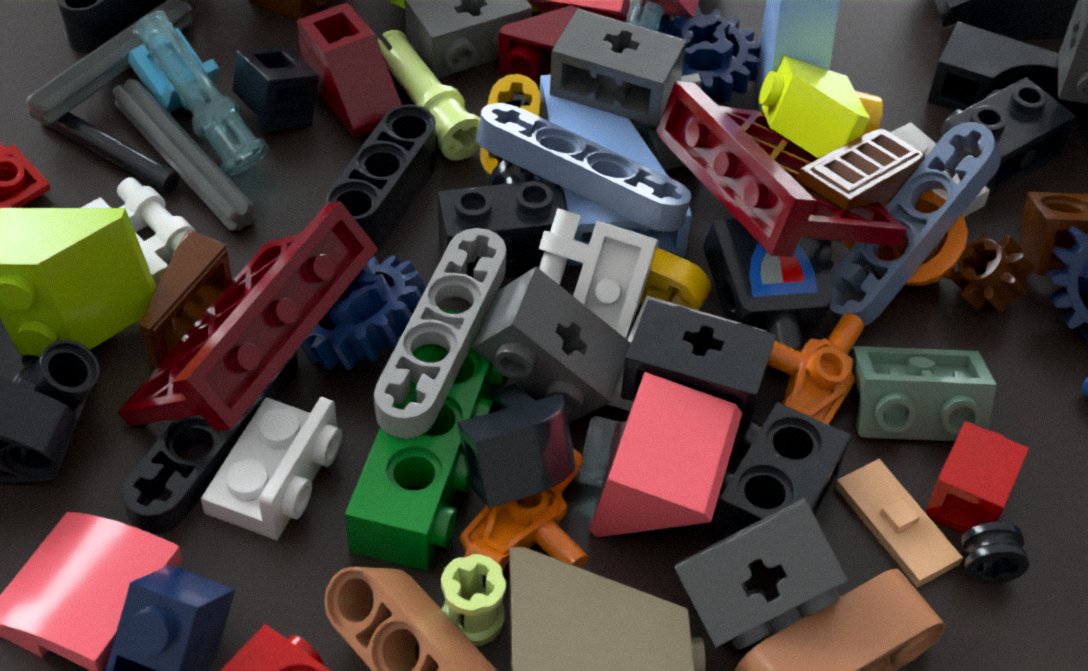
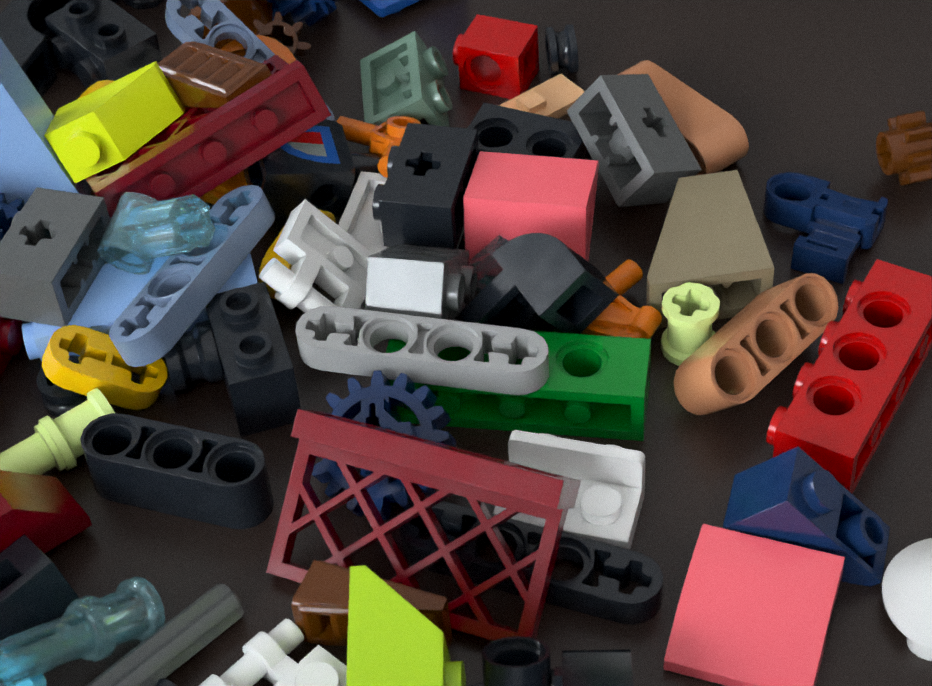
camera: 90 degrees left, 5 degrees down
(621, 123) = (154, 229): none -> clear light blue piece

